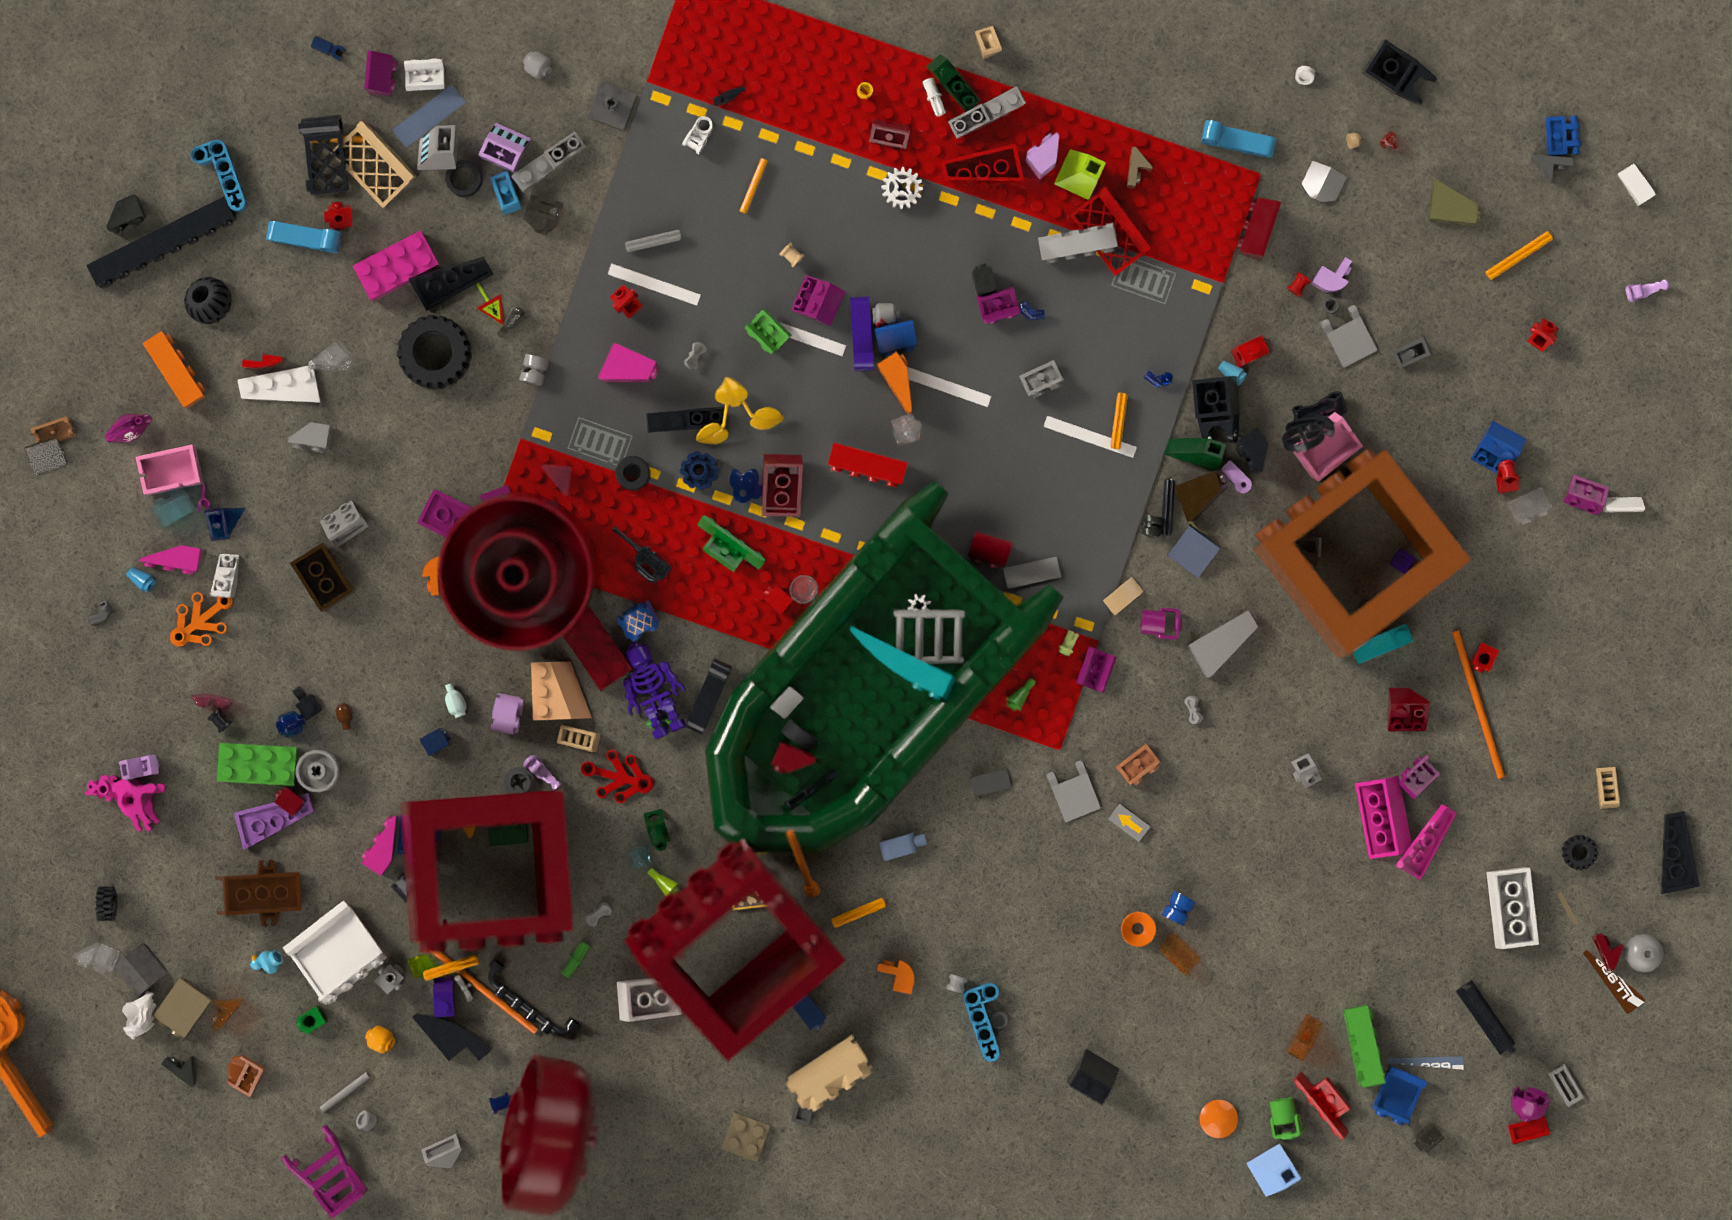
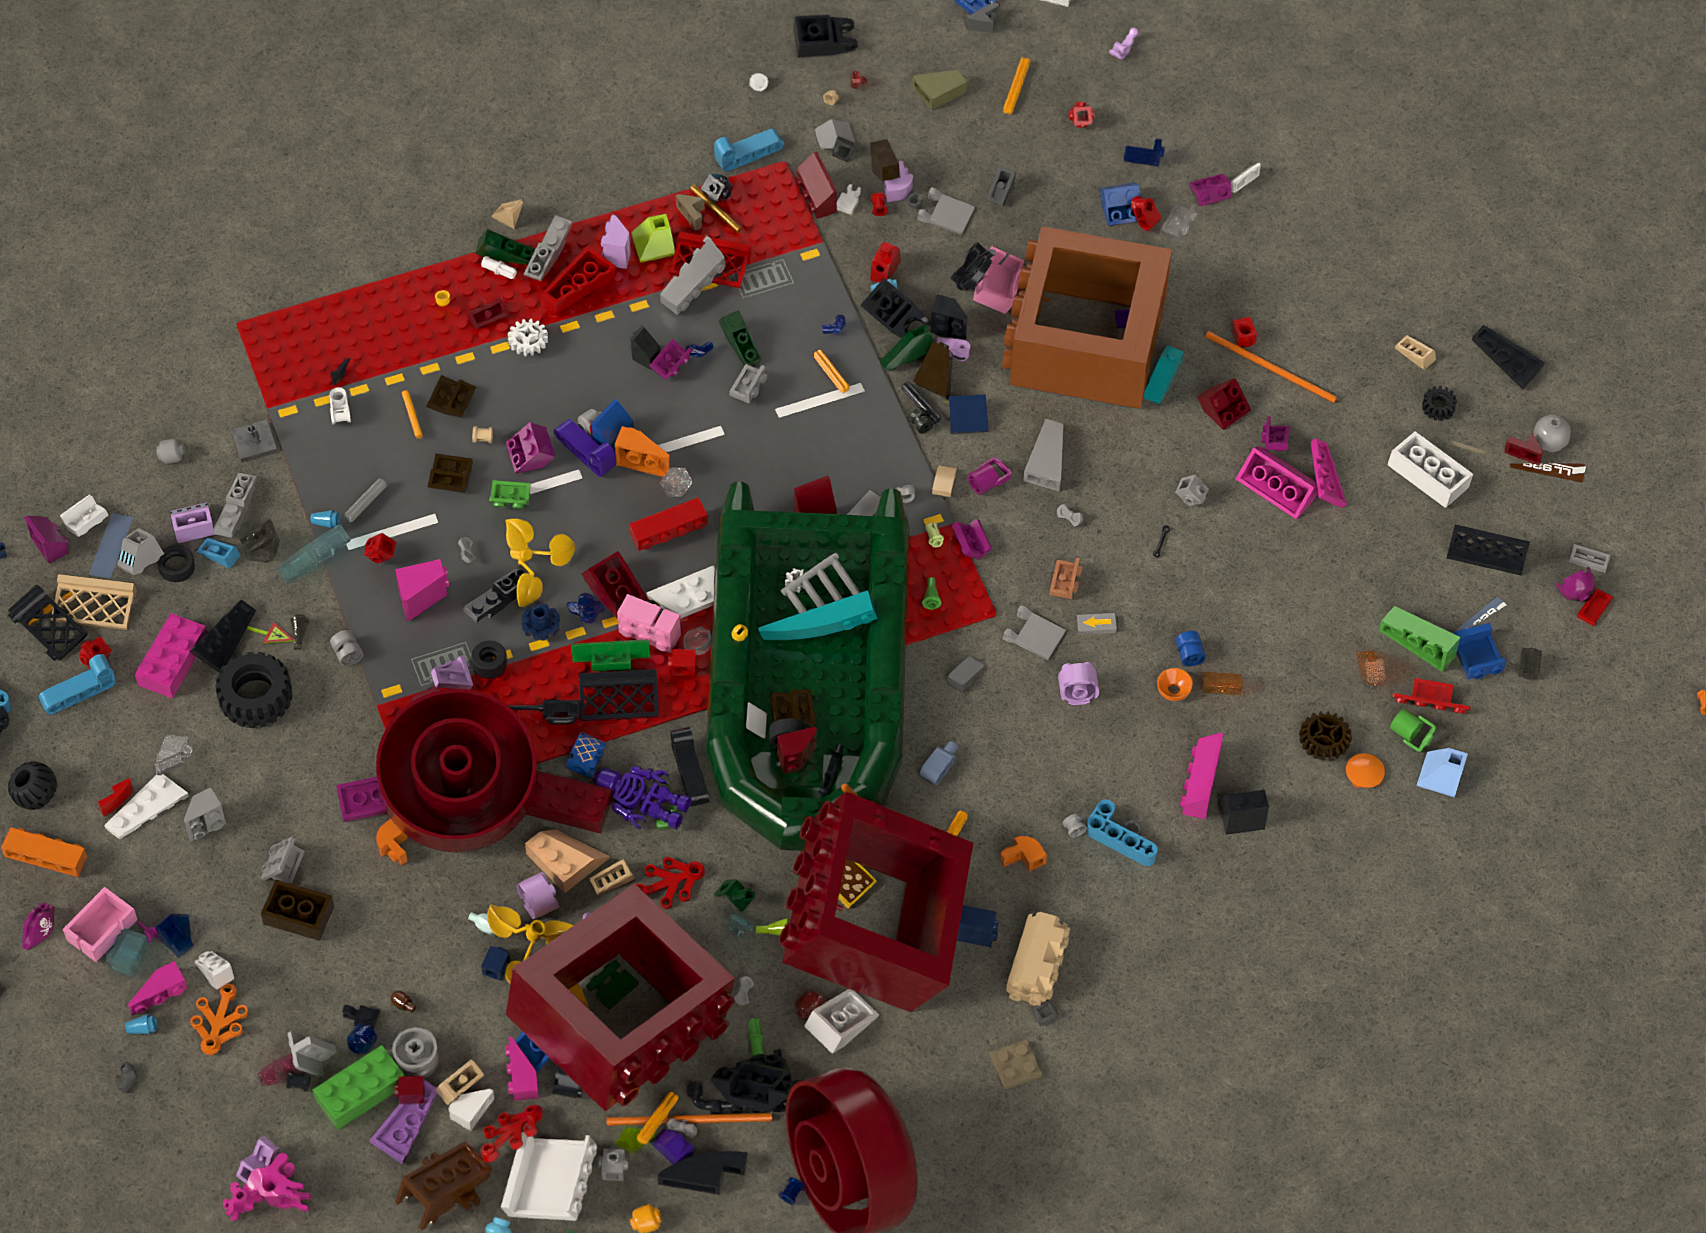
camera: 40 degrees left, 30 degrees down
(240, 707) = (309, 1053): none -> light grey bracket
(324, 846) = (470, 1107): none -> white slope
(330, 821) = (459, 1082): none -> tan brick
(340, 892) = (531, 1116): none -> red plant
(500, 751) = (506, 920): none -> yellow plant
(542, 1003) = (755, 1082): none -> black wedge
(574, 259) = (312, 554): none -> clear light blue slope
(593, 465) = (452, 675): none -> lavender wing
(608, 235) = (326, 518): none -> dark azure cone
(632, 969) = (807, 1003): none -> clear red head
(714, 572) = (618, 679): none -> black fence
(739, 270) = (450, 473): none -> dark brown slope
(775, 547) = (637, 621): none -> bright pink piece
(797, 194) = (451, 396): none -> dark brown slope
(824, 713) = (794, 706): none -> dark brown slope
(825, 624) = (743, 635): none -> yellow hinge
(834, 537) = (687, 594): none -> white wing
(1064, 869) = (1078, 683): none -> lavender brick
(1070, 330) = (740, 338): none -> dark green slope
(1079, 585) = (907, 490): none -> light grey tile
(1087, 1025) = (1202, 776): none -> dark pink slope
(1160, 180) = (721, 213): none -> pearl gold bar
(1175, 164) = (717, 187): none -> black brick
(1216, 1057) = (1324, 745): none -> dark brown gear
(1231, 799) = (1165, 529): none -> black hinge
(1277, 259) = (849, 201): none -> white plate
(1316, 204) = (843, 149): none -> pearl dark grey slope
(1331, 255) = (884, 161): none -> dark brown slope
(1561, 415) = (1144, 155): none -> clear blue bracket

